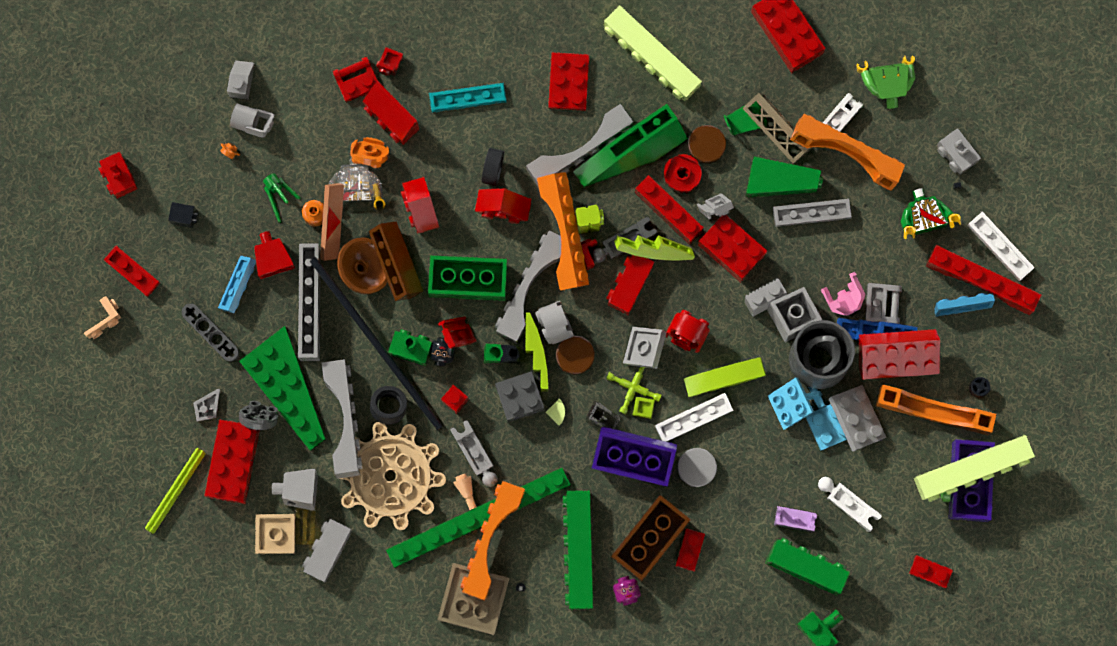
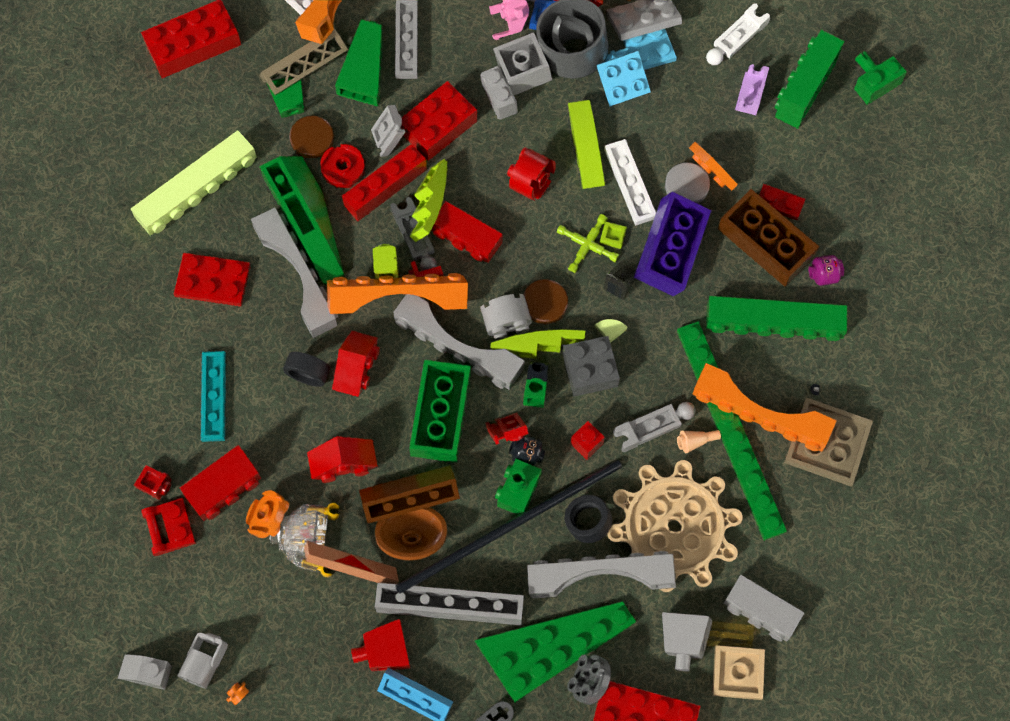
camera: 85 degrees left, 10 degrees down
(273, 185) = (289, 638): green plant -> none
(308, 213) = (340, 595): orange head -> none
(644, 347) = (545, 222): light grey plate -> none
(711, 484) = (710, 165): none -> orange plate

